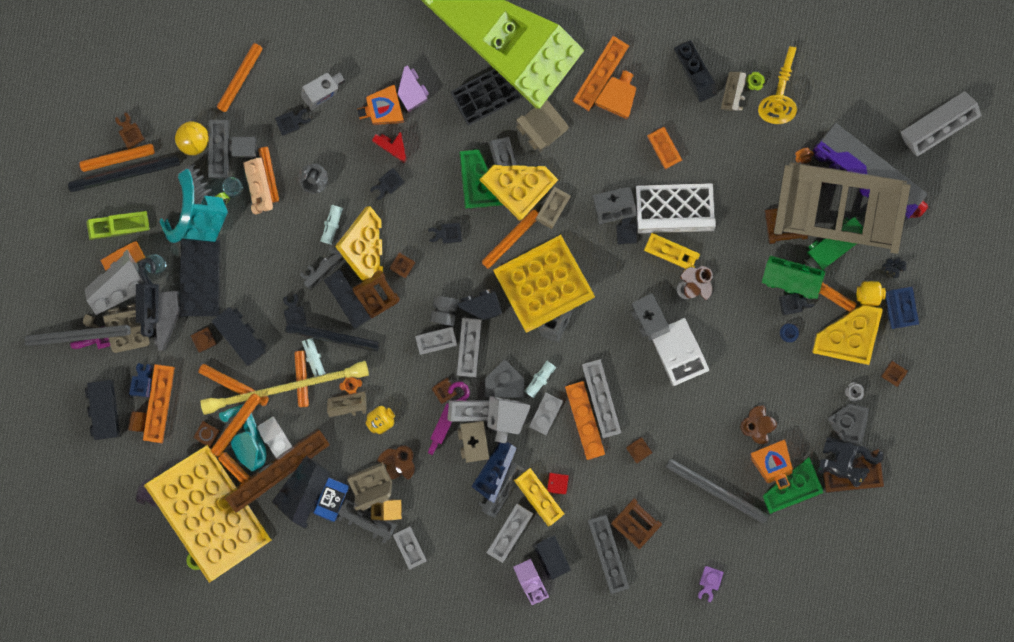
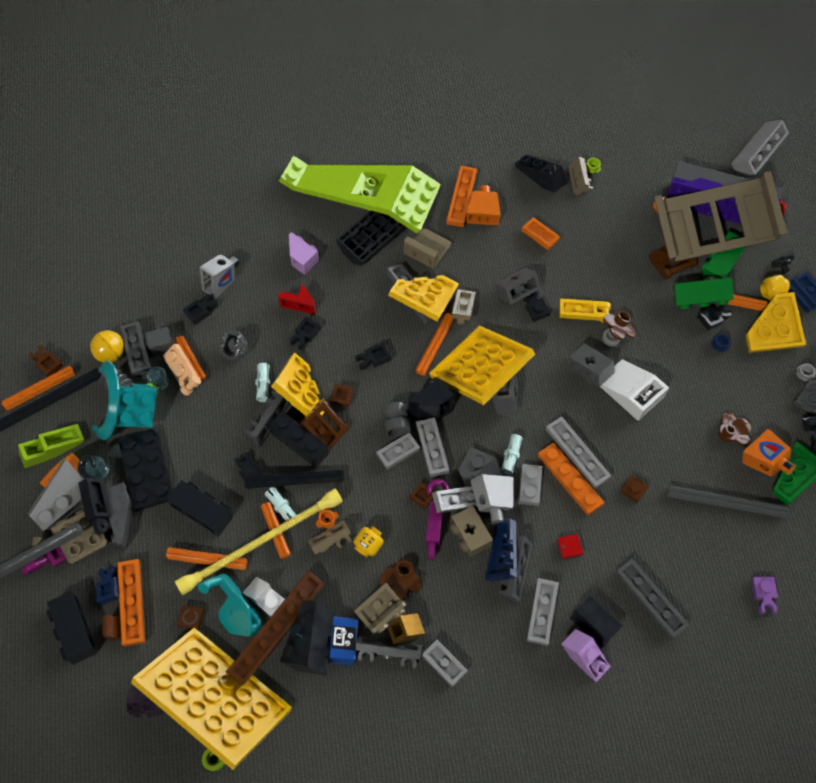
camera: 20 degrees left, 25 degrees down
(203, 340) = (164, 525): reddish brown plate -> none
(233, 467) = (230, 643): orange axle -> none
(236, 424) = (218, 594): orange axle -> none
(239, 77) = (141, 290): orange axle -> none
(382, 107) = (280, 273): orange torso -> none
(475, 192) = (386, 309): green wing -> none
(539, 497) = (558, 564): yellow plate -> none
(631, 528) = (662, 564): reddish brown plate -> none
(672, 224) = (577, 286): white fence -> none
(776, 100) = (620, 172): yellow dish -> none

